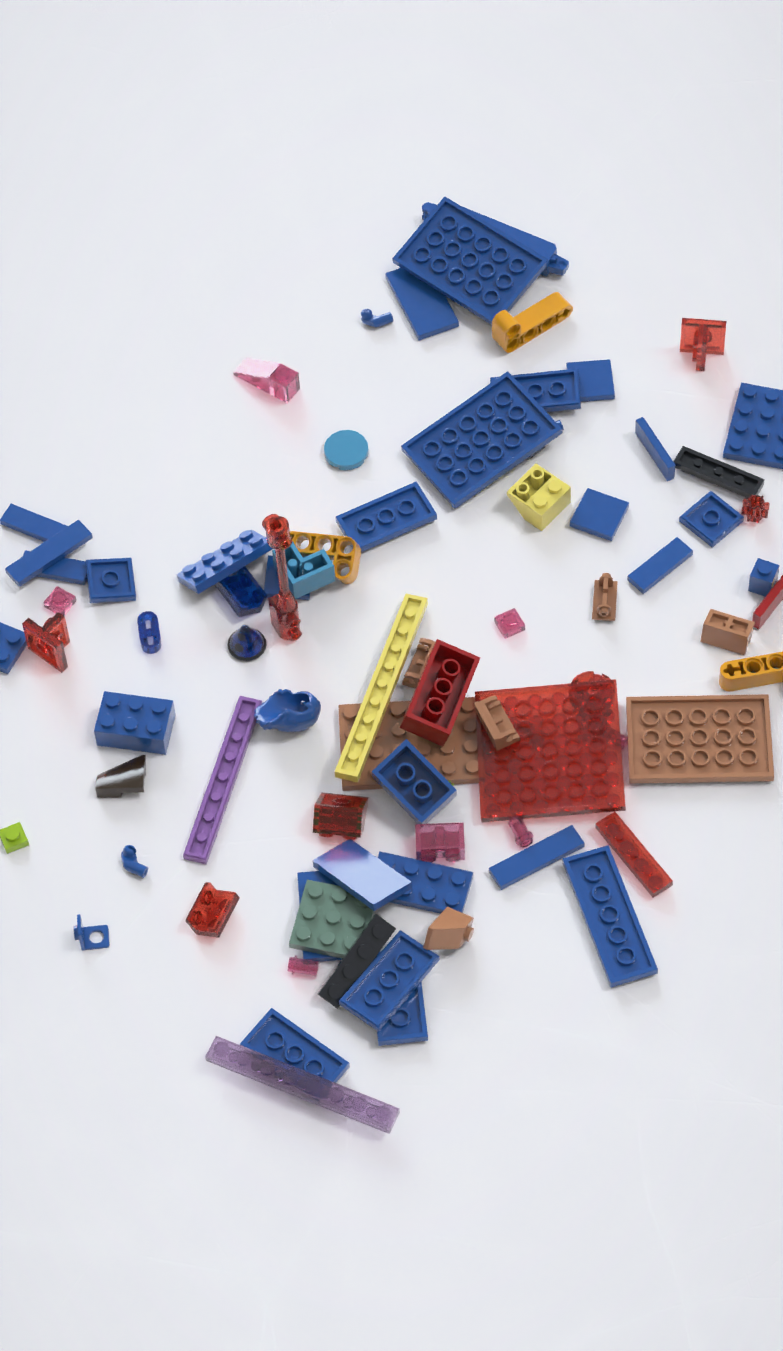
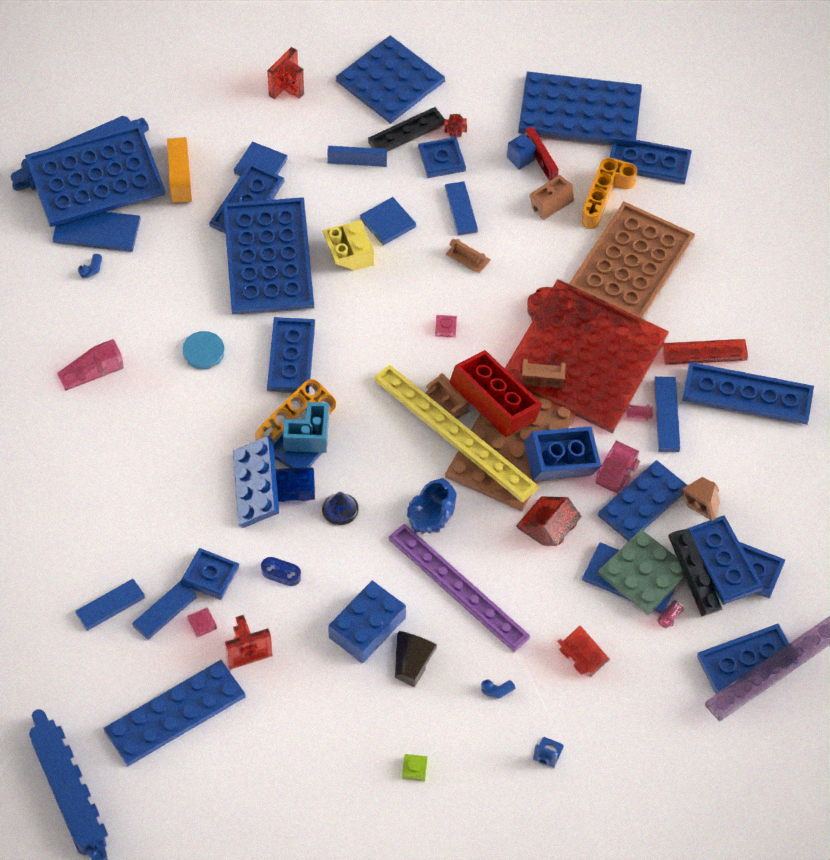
camera: 65 degrees left, 0 degrees up
(48, 553) = (151, 605): blue tile -> none
(283, 605) = (345, 459): clear red bar -> none
(362, 874) = (620, 529): tile -> none

